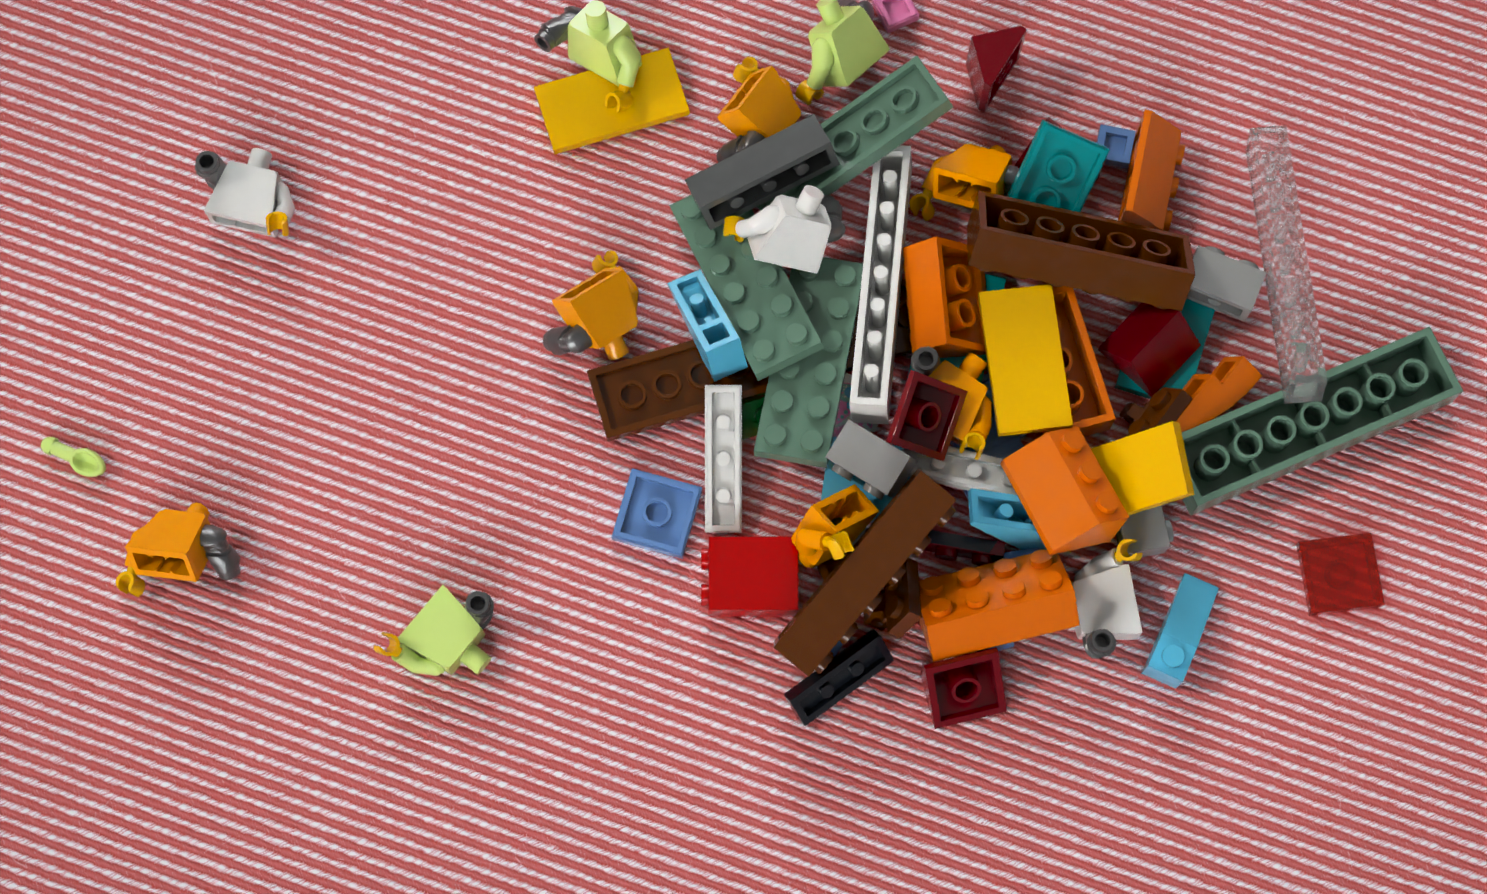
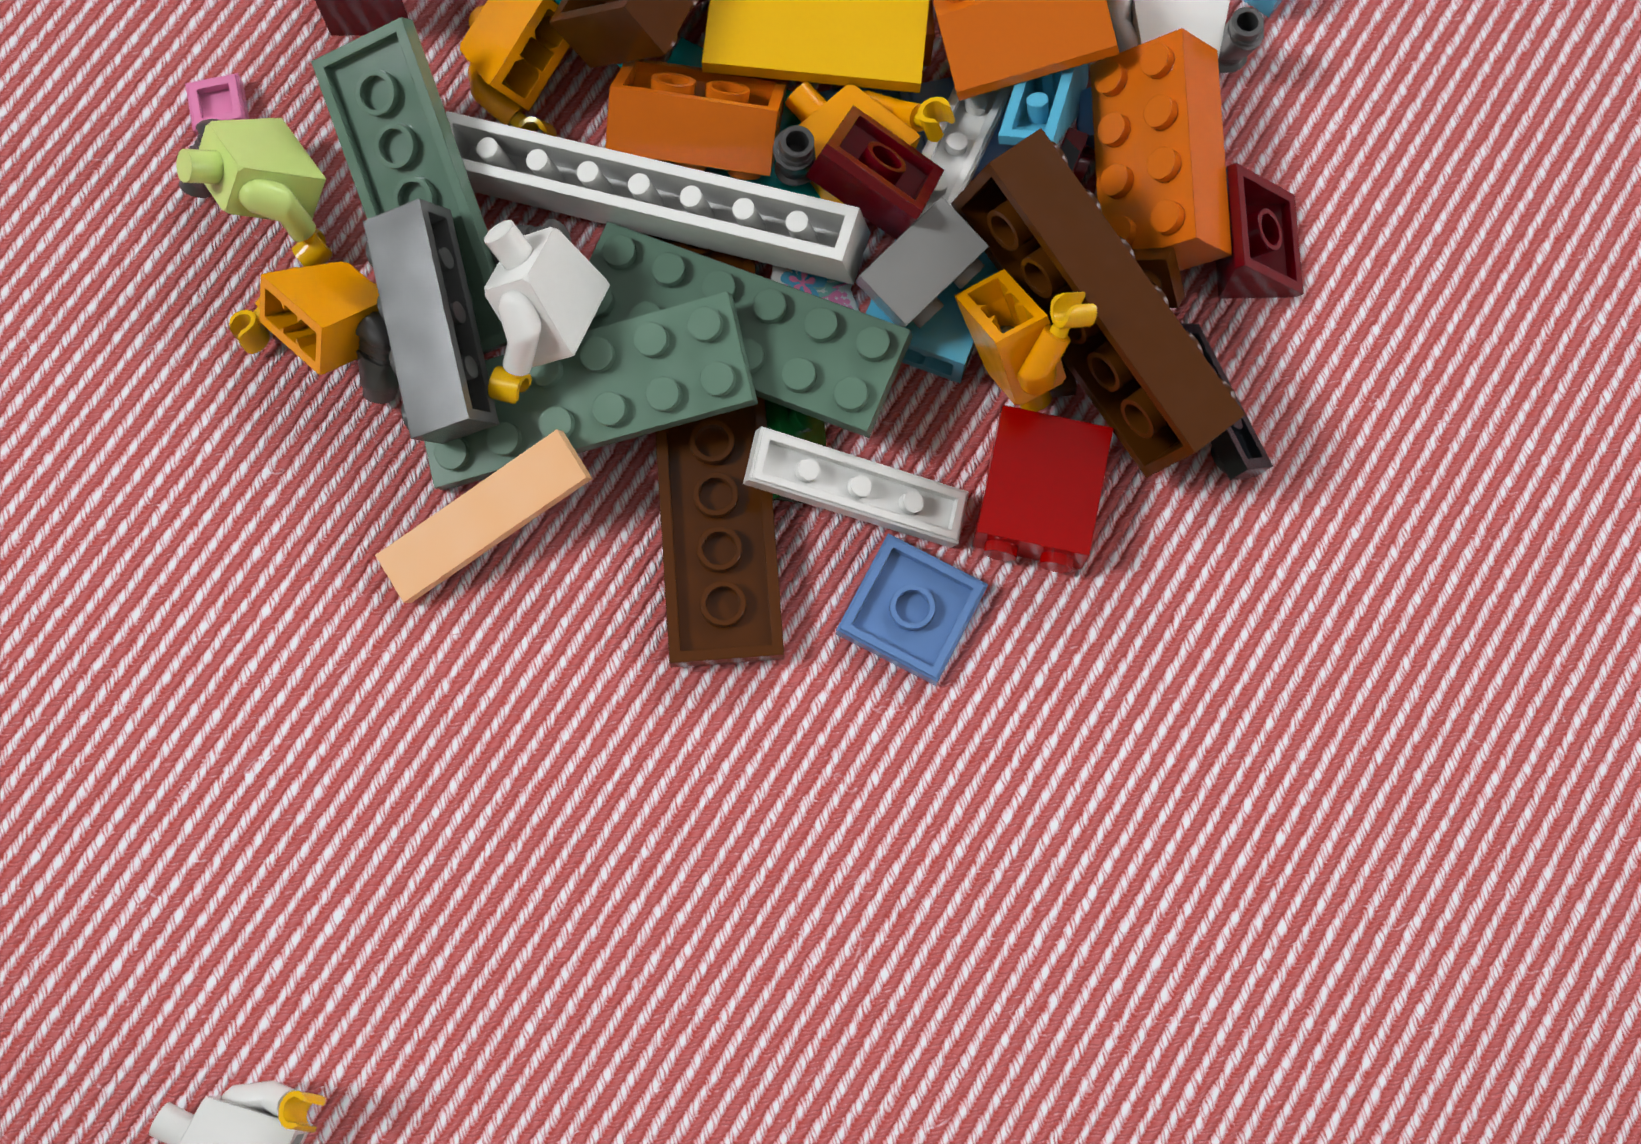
camera: 80 degrees left, 0 degrees up
(443, 635) = (1047, 969): yellowish green torso -> none
(577, 110) = (237, 542): yellow tile -> none
(596, 312) = (580, 627): light orange torso -> none
(599, 44) = (143, 528): yellowish green torso -> none
(653, 238) = (483, 516): none -> light nougat tile
(708, 325) = (656, 458): medium azure slope -> none

